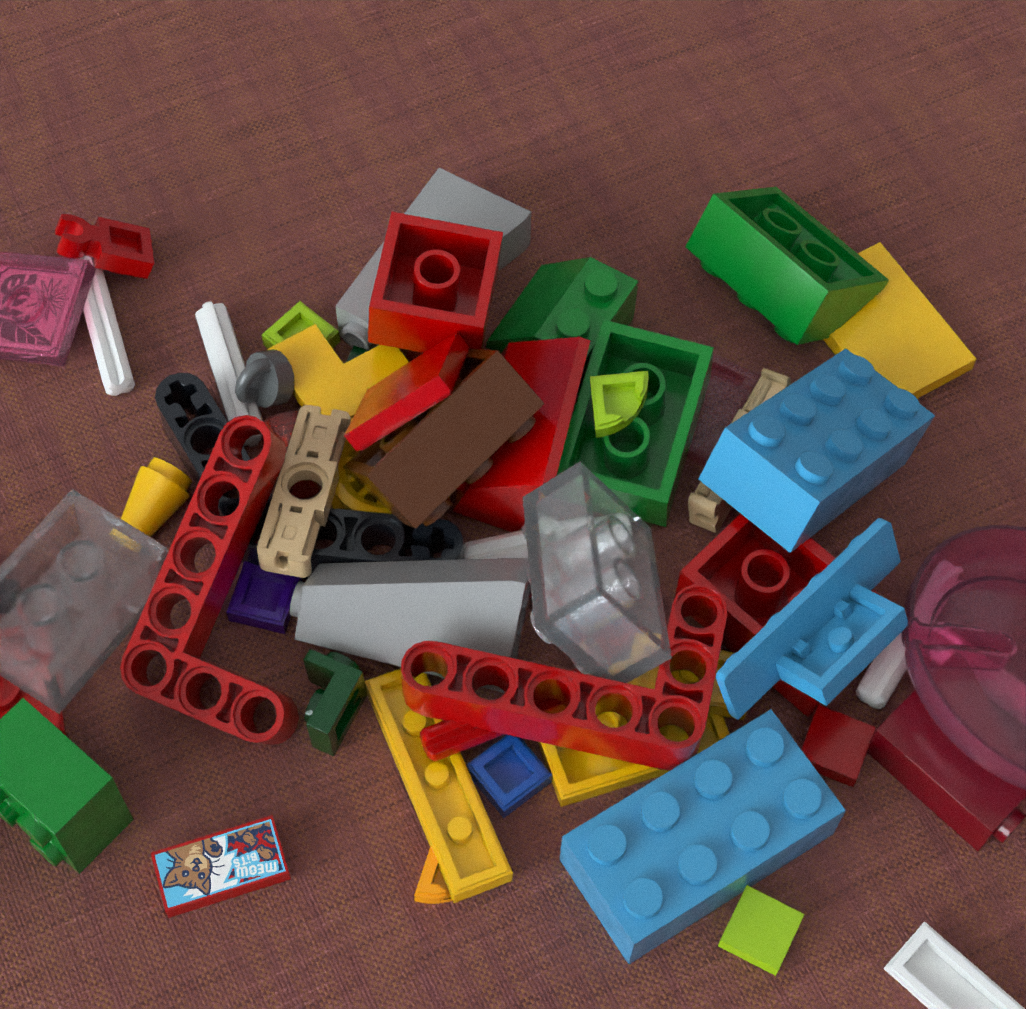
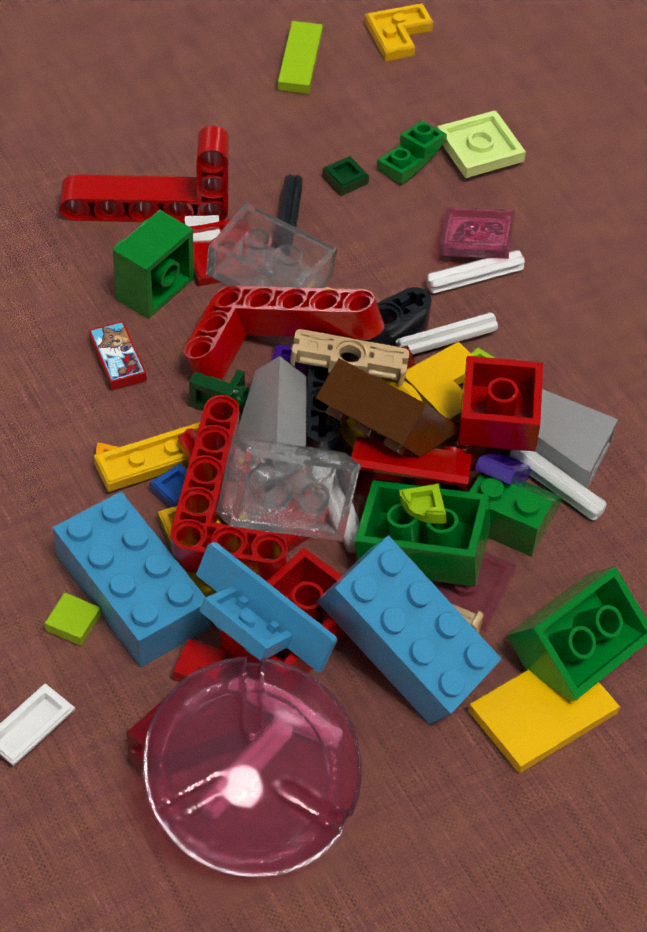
camera: 85 degrees right, 10 degrees down
(112, 243) = (528, 267): red plate -> none
(266, 379) = (440, 342): dark grey tile -> none
(407, 392) = (413, 387): red tile -> none
(523, 314) = (503, 468): none -> dark purple tile
(534, 252) = (561, 483): none -> white axle

